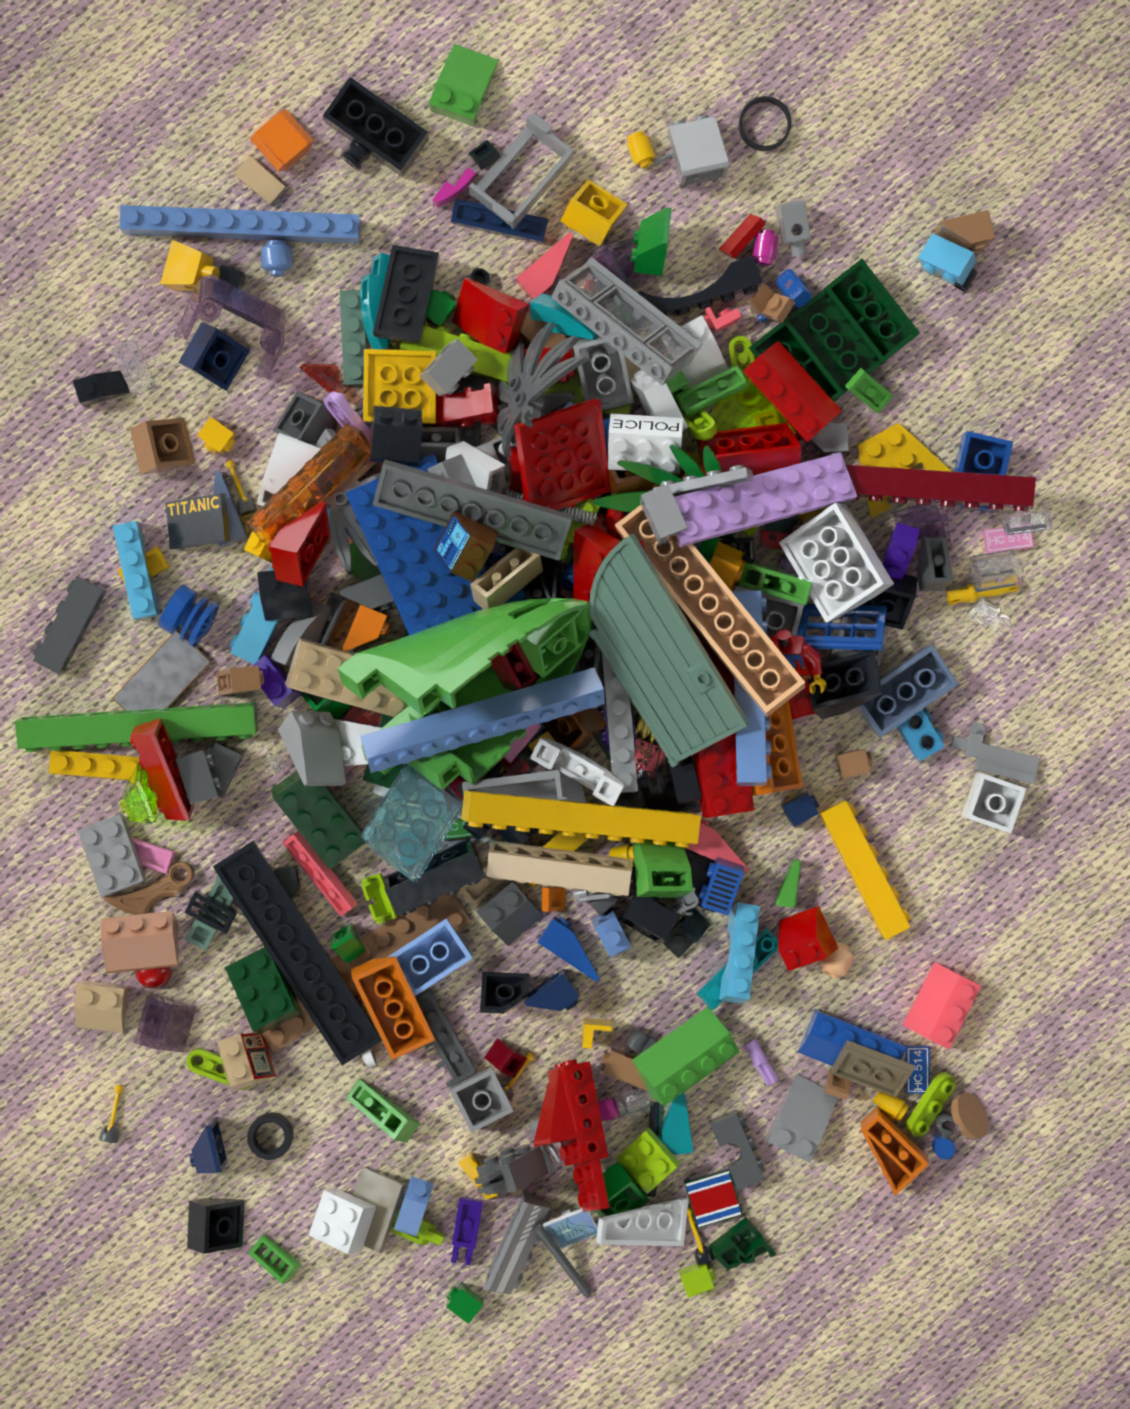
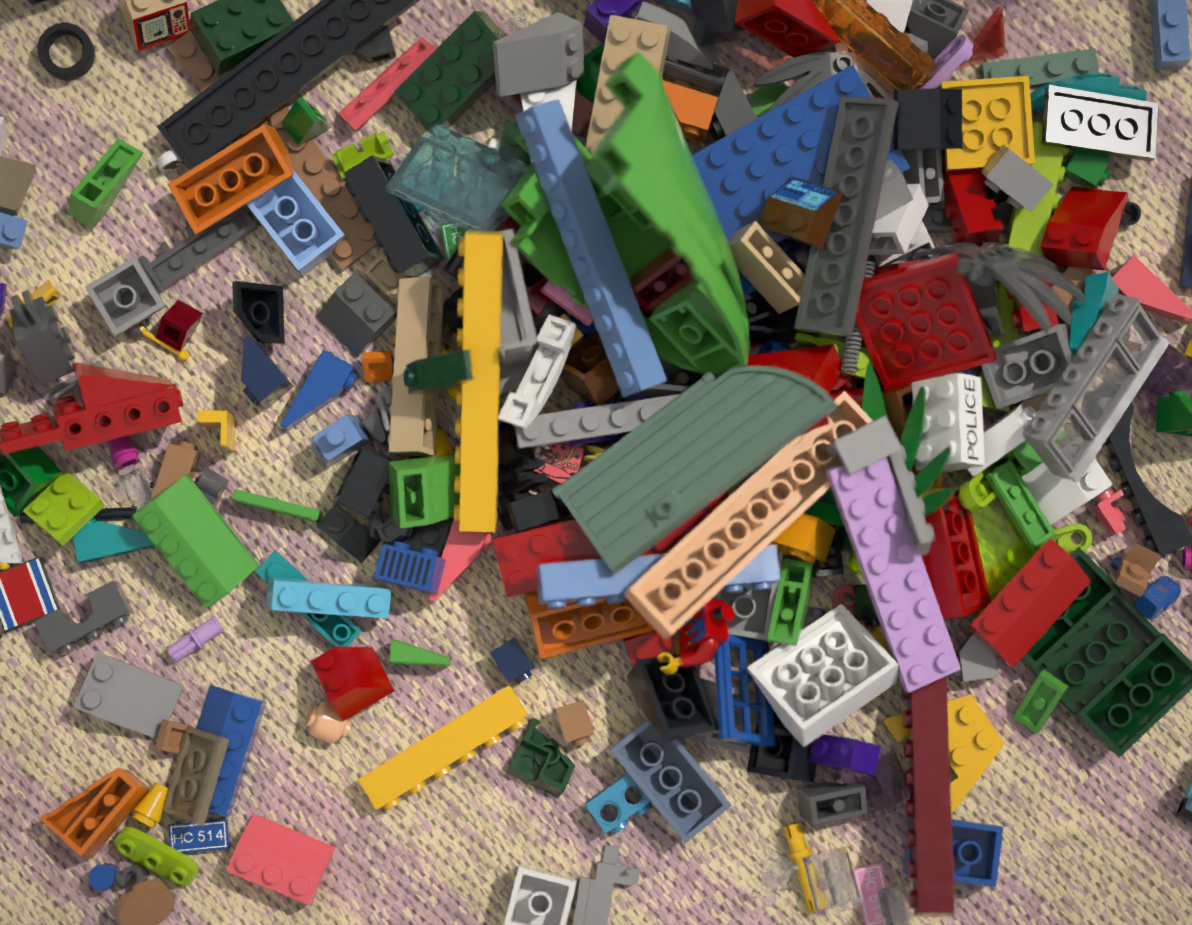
camera: 85 degrees right, 5 degrees down
(573, 851) = (438, 372): none -> dark green slope
(660, 988) = (277, 506): none -> bright green tile
(886, 787) = (549, 767): none -> dark green slope

